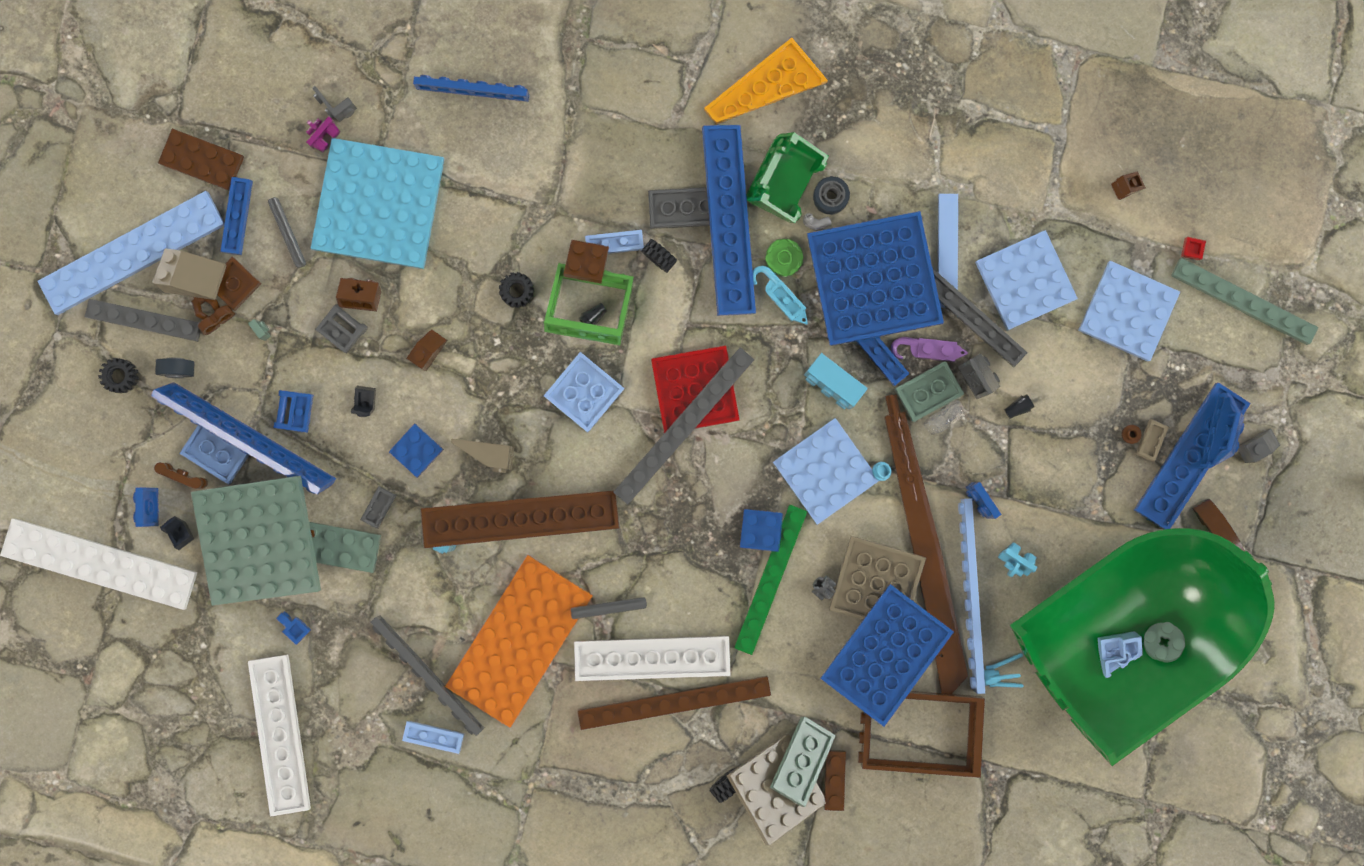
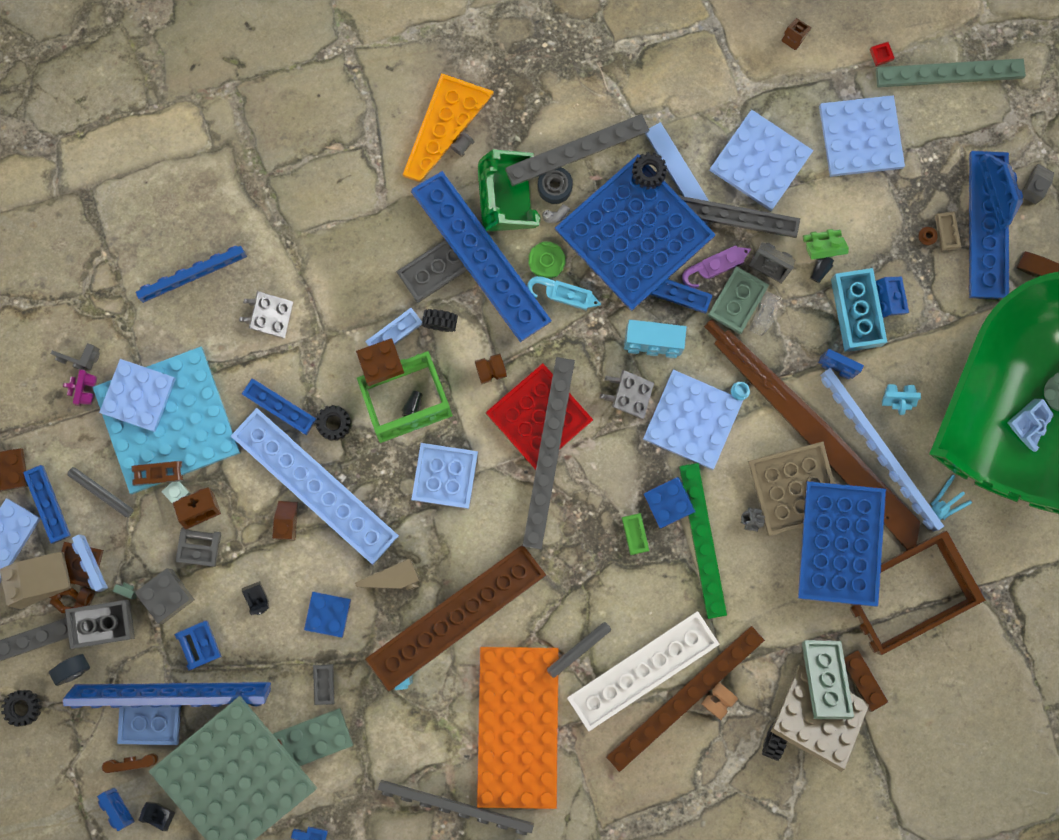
camera: 35 degrees left, 5 degrees down
(221, 345) = (100, 624): none -> dark grey slope
(241, 288) = (89, 563): none -> light blue plate
(289, 353) = (164, 596): none -> dark grey brick
(342, 245) = (157, 473): none -> reddish brown plate
(350, 269) = (175, 491): none -> light aqua plate
(364, 167) = (137, 395): none -> light blue plate
(469, 335) = (315, 486): none -> light blue plate
(479, 248) = (279, 406): none -> blue plate
(517, 163) = (269, 314): none -> plate
(678, 323) = (490, 368): none -> reddish brown wheel
(707, 722) = (726, 699): none -> medium nougat wheel
(716, 539) = (635, 534): none -> bright green plate
(772, 111) = (462, 144): none -> dark grey bush
(785, 418) = (632, 394): none -> flat silver plate
(869, 176) = (577, 150): none -> dark grey plate
(931, 228) = (644, 160): none -> black tyre
(1028, 463) = (858, 310): none -> medium azure brick
(1035, 392) = (821, 248): none -> bright green plate
(1064, 468) = (892, 296): none -> blue bracket

